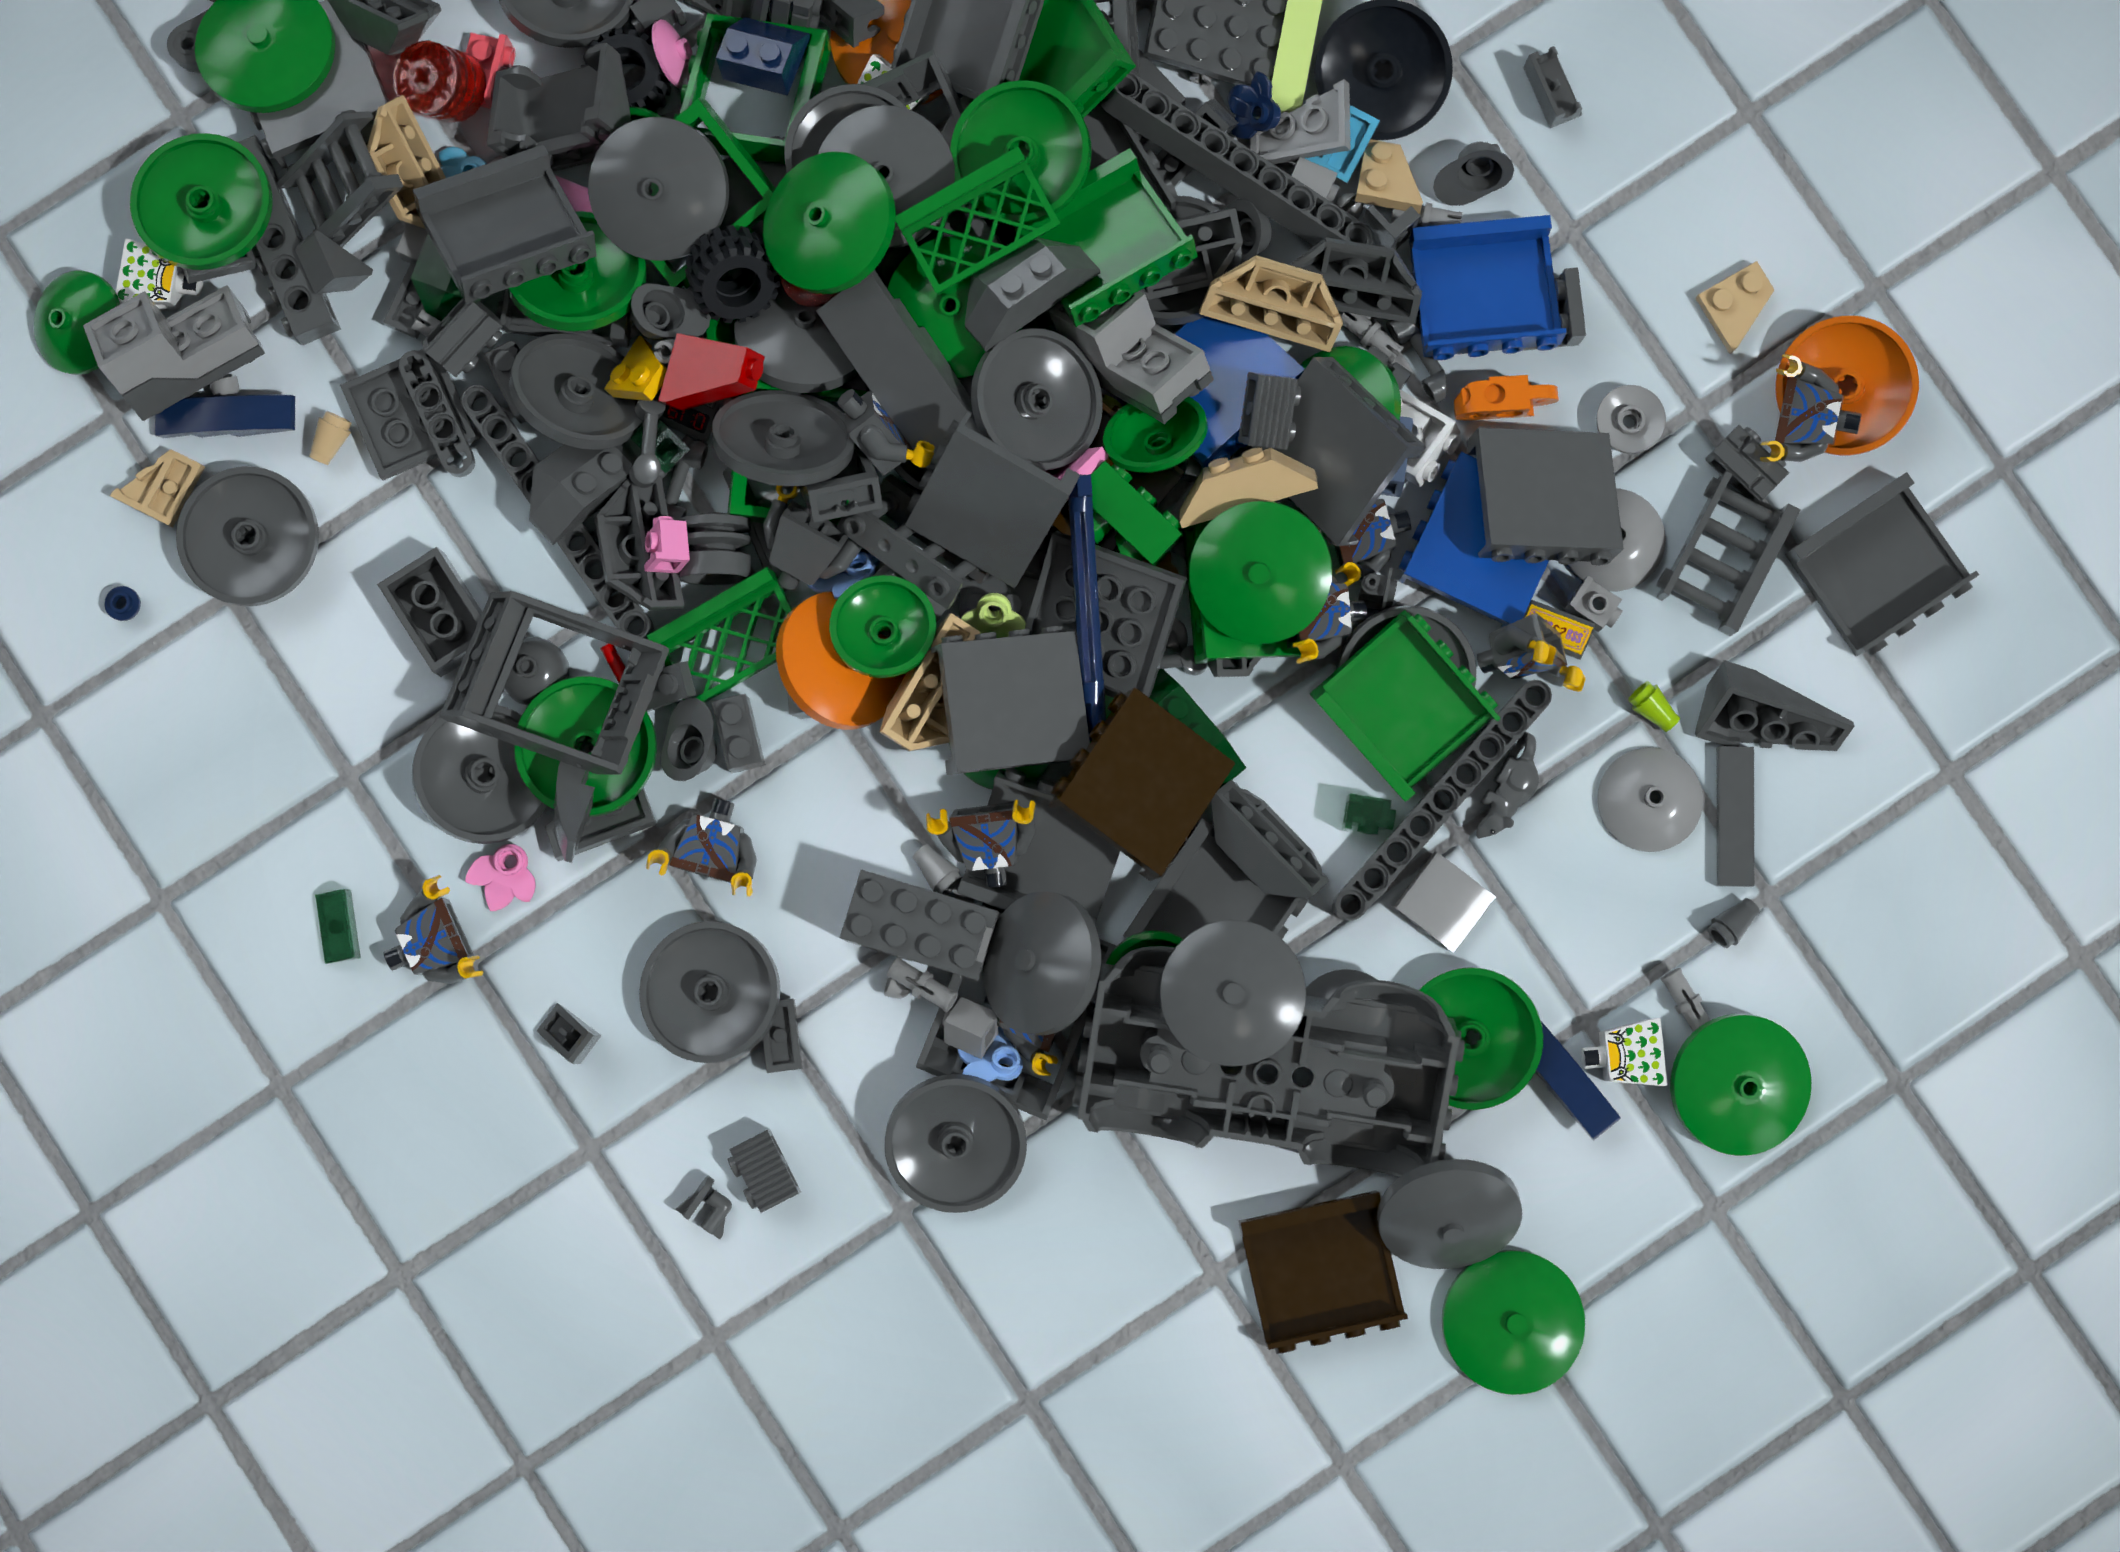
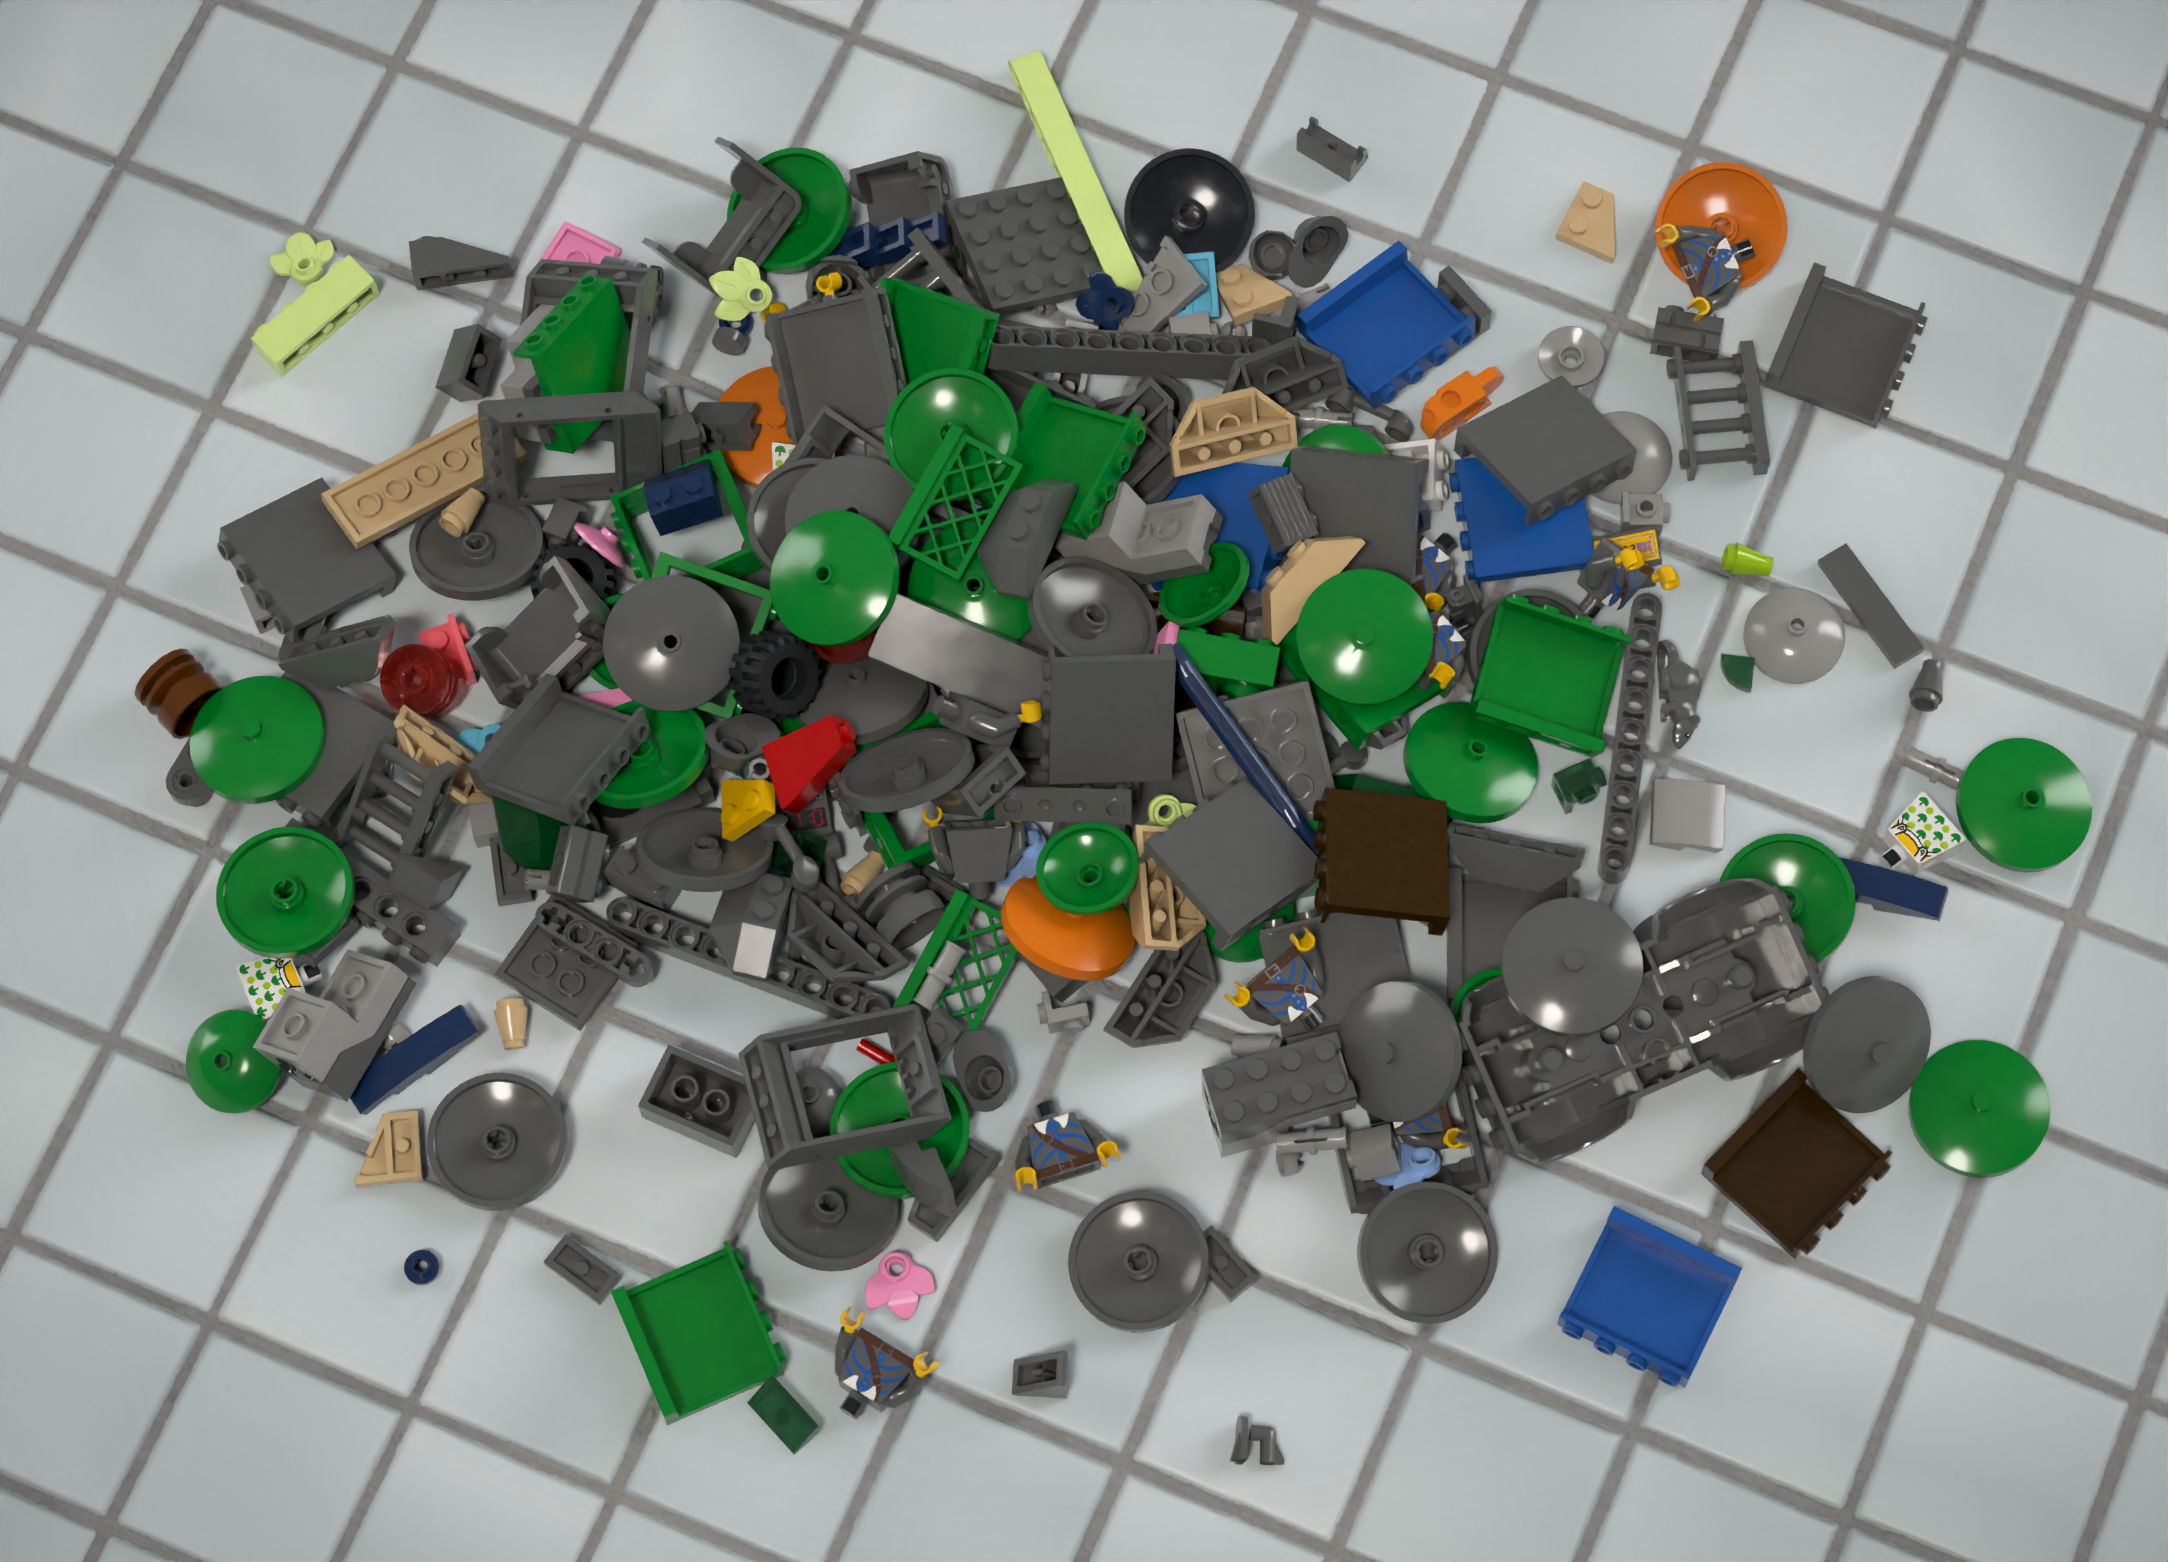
camera: 30 degrees left, 15 degrees down
(251, 692) = (582, 1270): none -> dark grey plate
(310, 810) = (700, 1334): none -> green panel
(667, 545) = (864, 920): bright pink brick -> none
(703, 633) = (939, 975): none -> light grey pin
(705, 497) = (862, 874): none -> tan cone
(738, 733) = (1021, 1042): dark grey brick -> none
(764, 1171) = (1283, 1380): dark grey brick -> none
(793, 740) = (1067, 1019): none -> light grey bracket
(881, 778) = (1165, 996): none -> dark grey wedge
(1116, 1302) = (1649, 1297): none -> blue panel
(1260, 740) = (1469, 764): none -> green dish
(1430, 153) = (1270, 254): none -> dark grey hair
(1578, 800) = (1738, 671): none -> clear green tile
(1753, 708) = (1829, 513): dark grey wedge -> none

